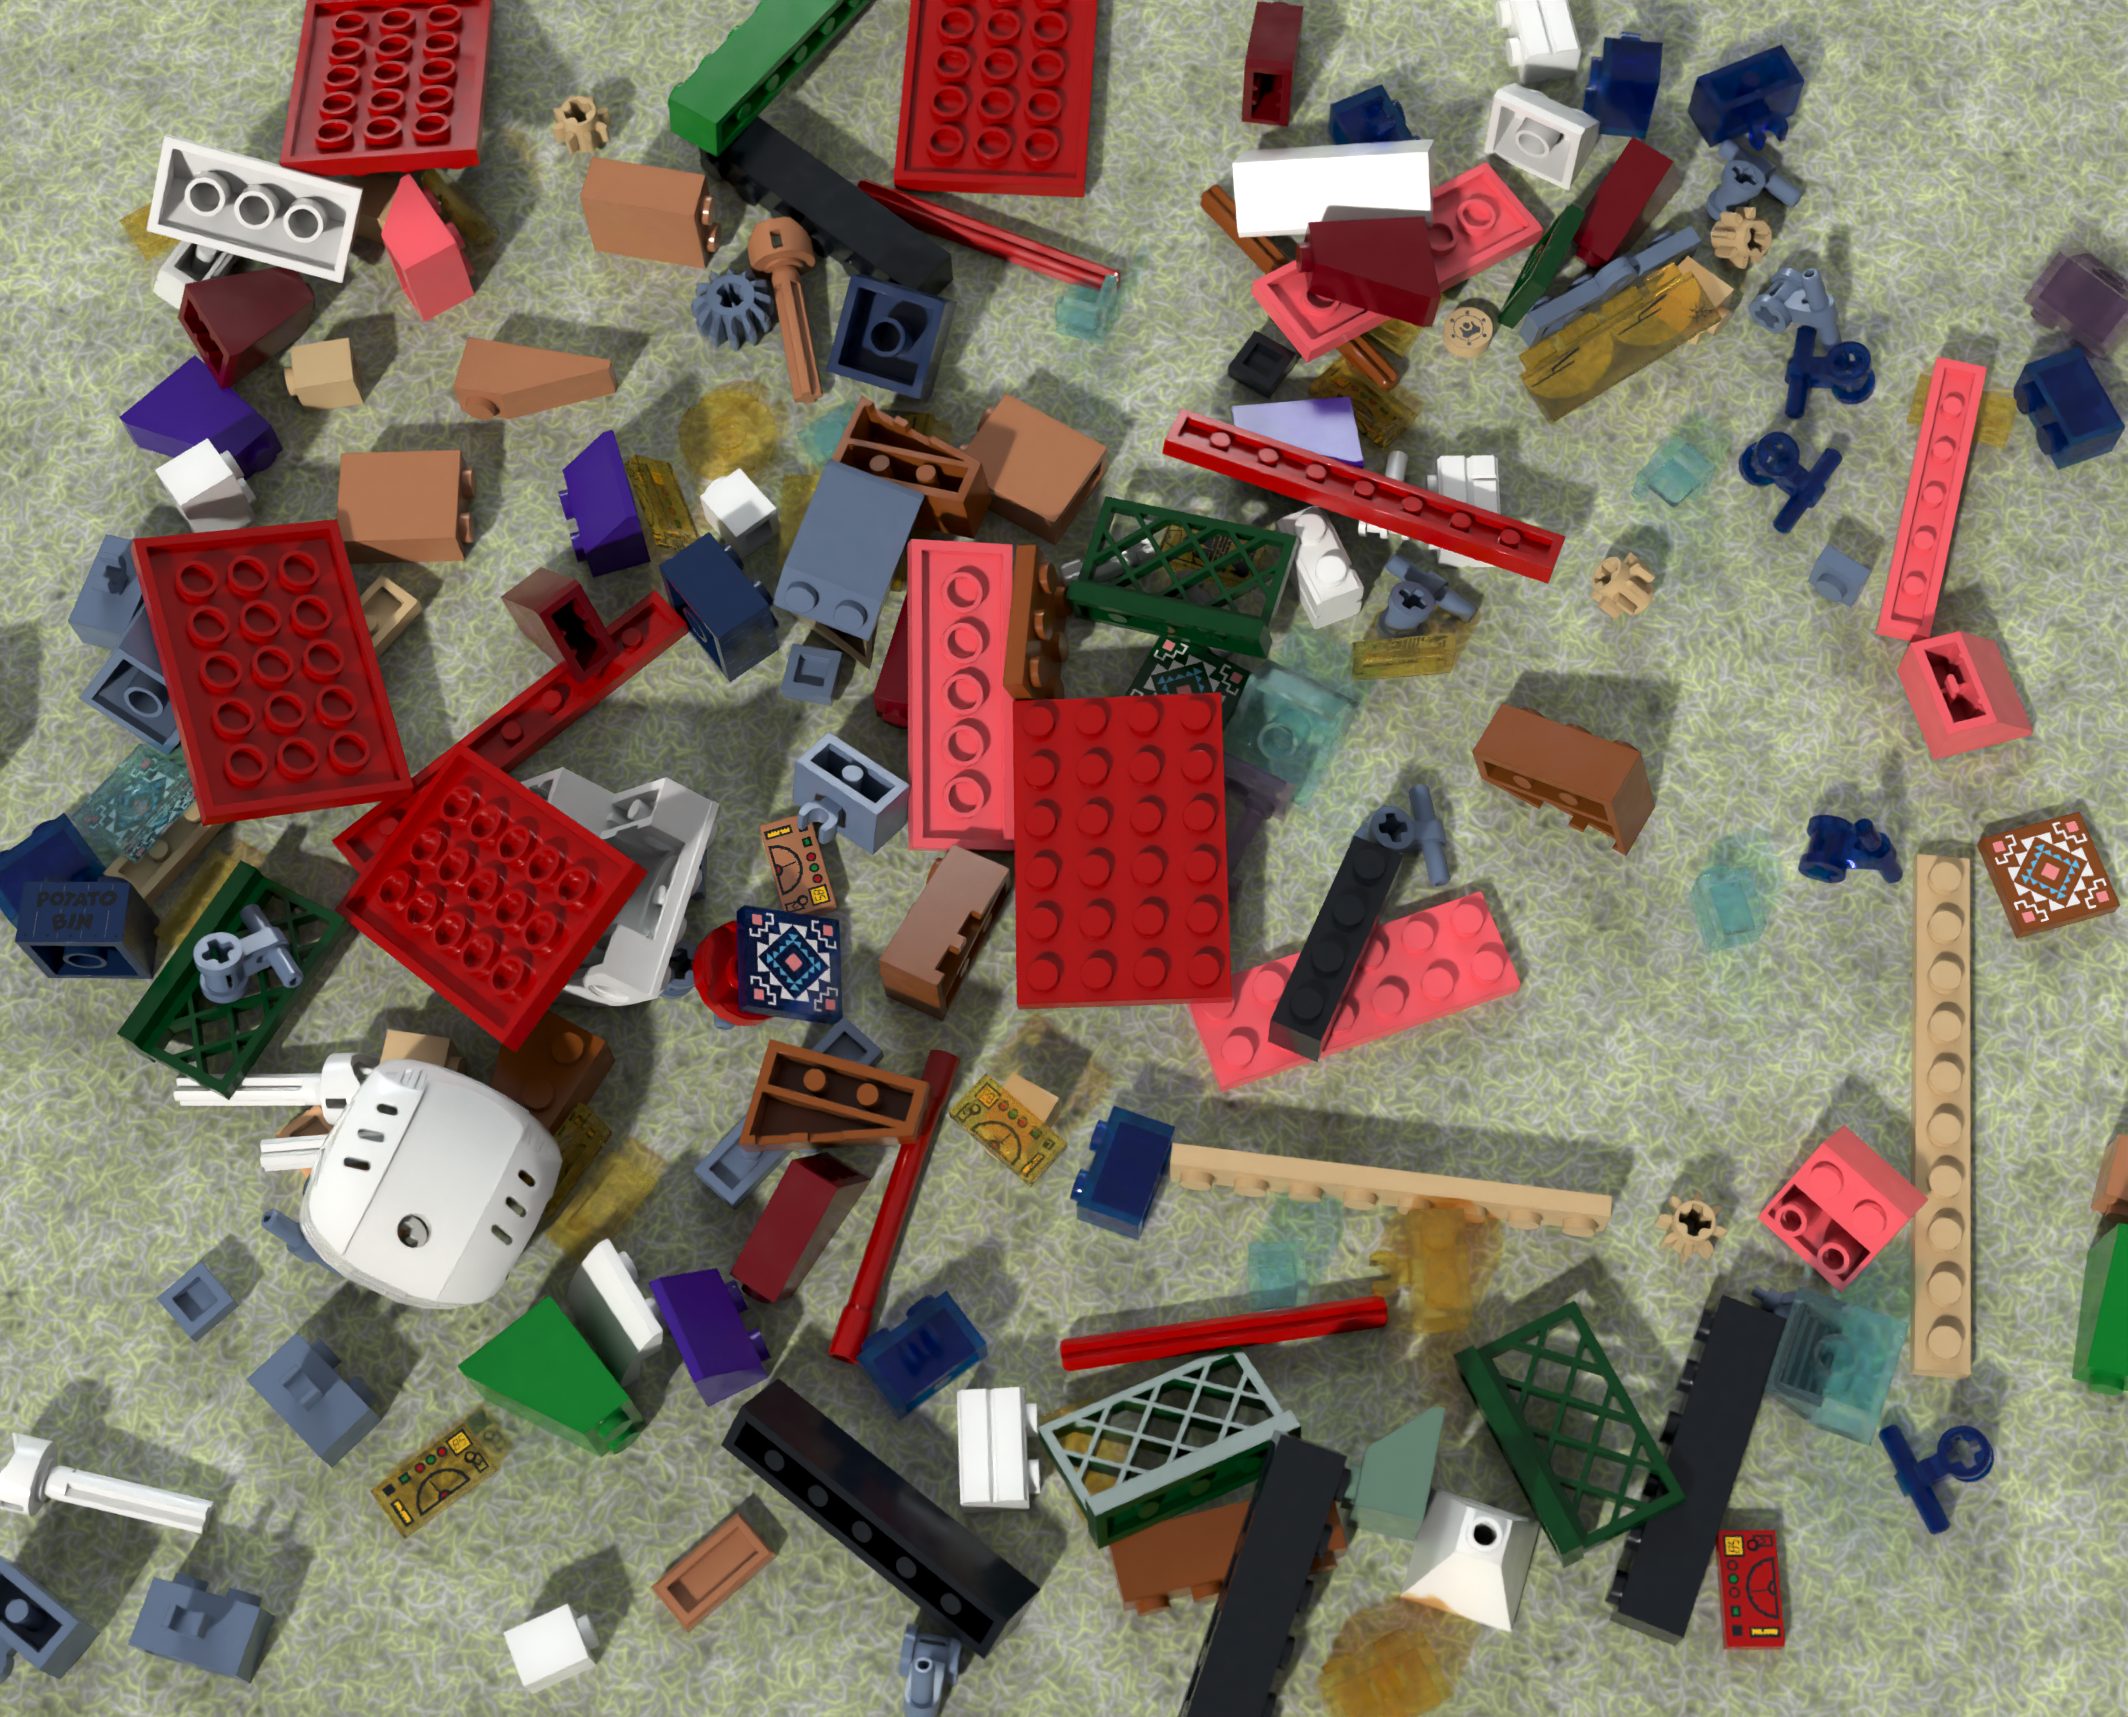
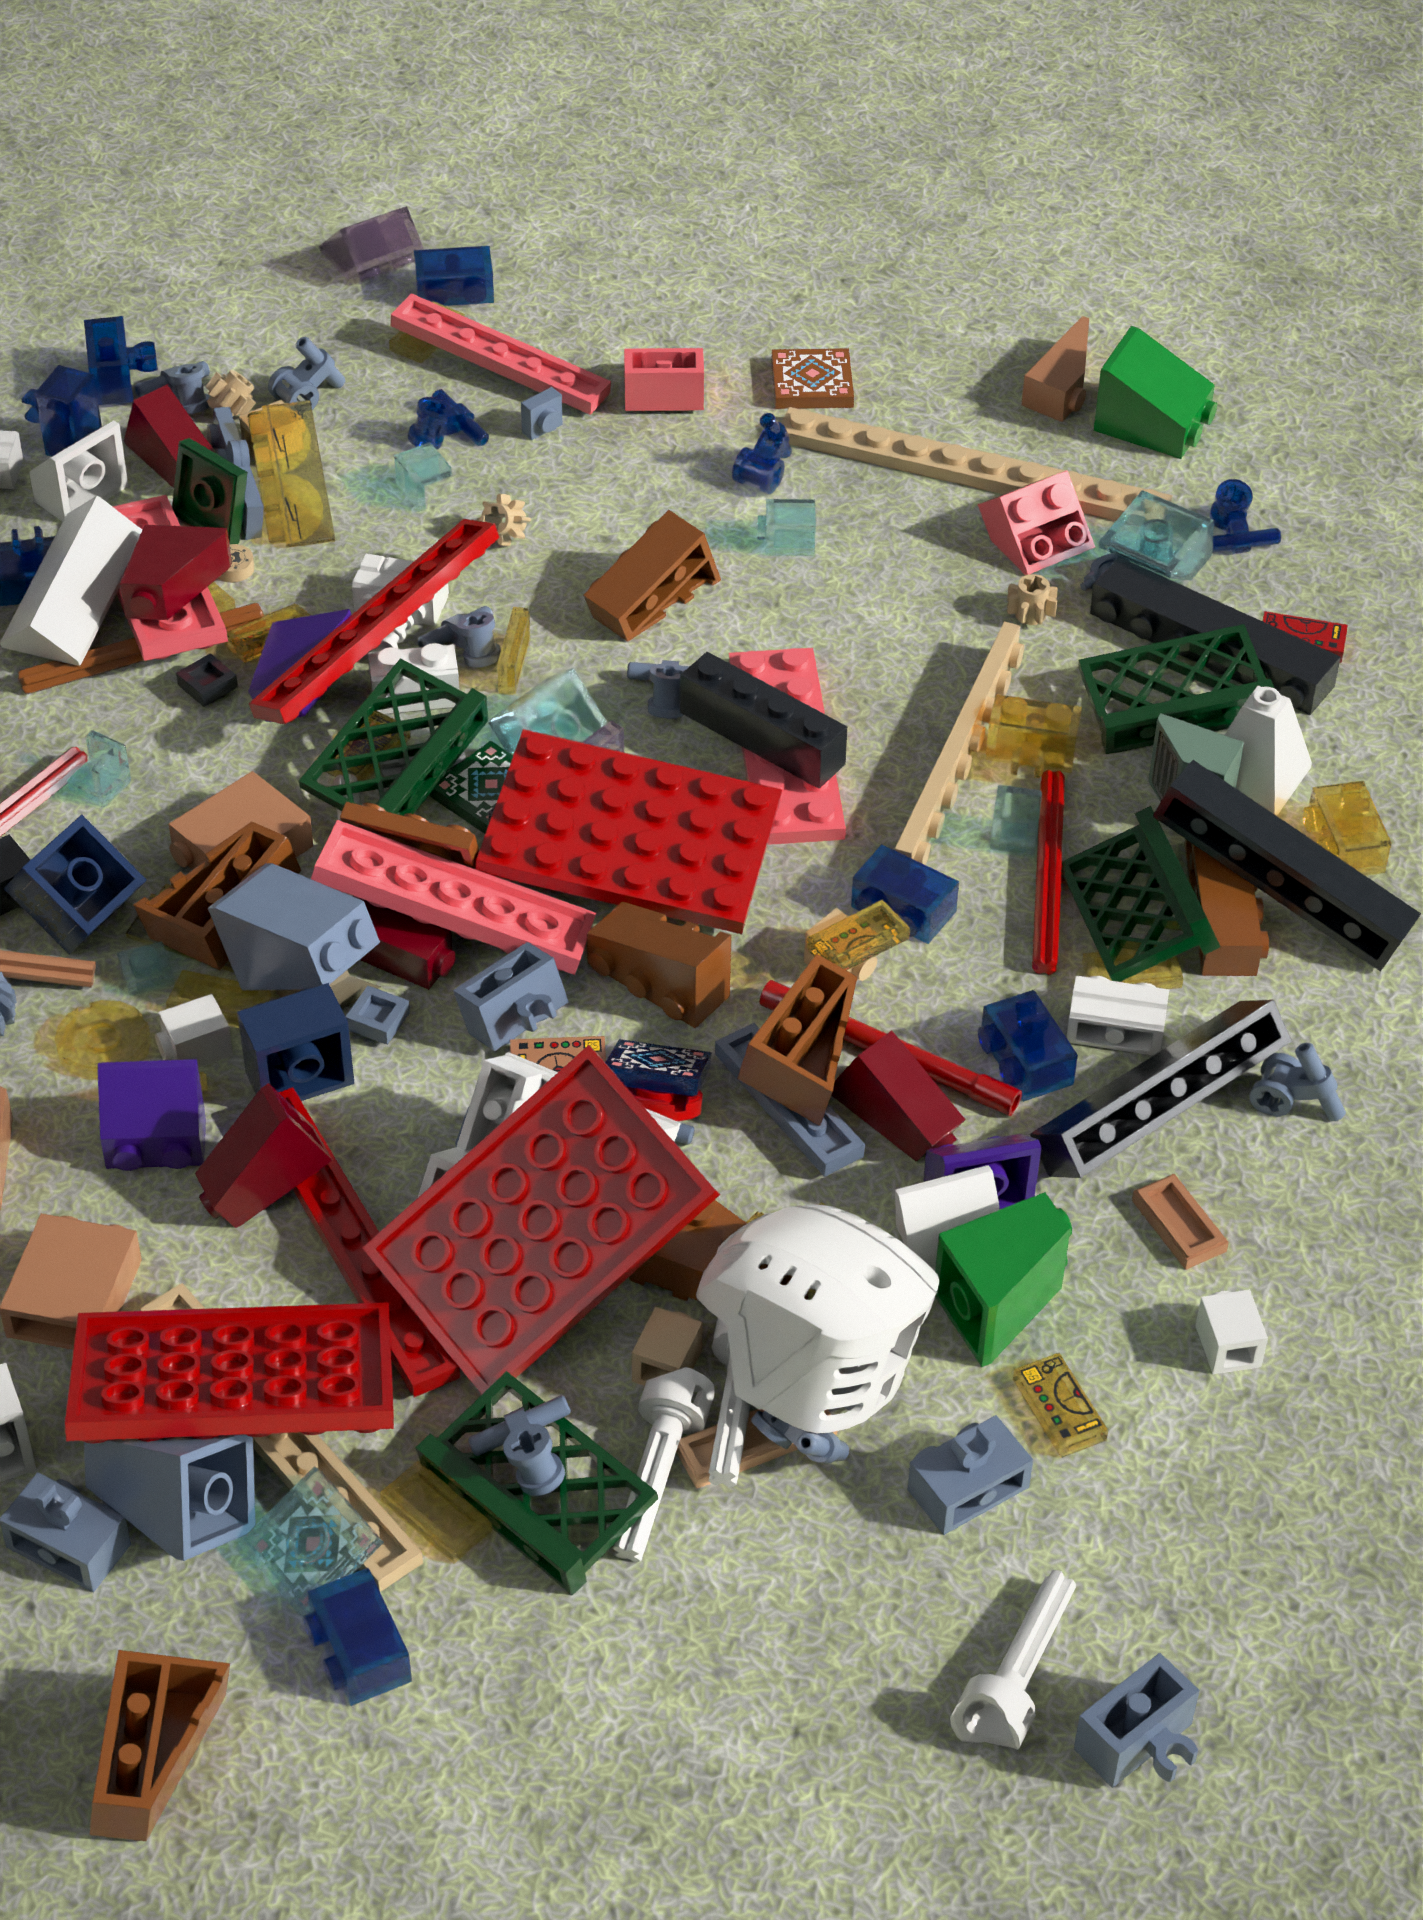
camera: 80 degrees left, 20 degrees down
(87, 928) = (444, 1582): dark blue brick -> none
(197, 1301) = (850, 1560): sand blue plate -> none
(201, 1627) = (1168, 1589): sand blue brick -> none
(1827, 371) = (374, 377): clear blue piece -> none

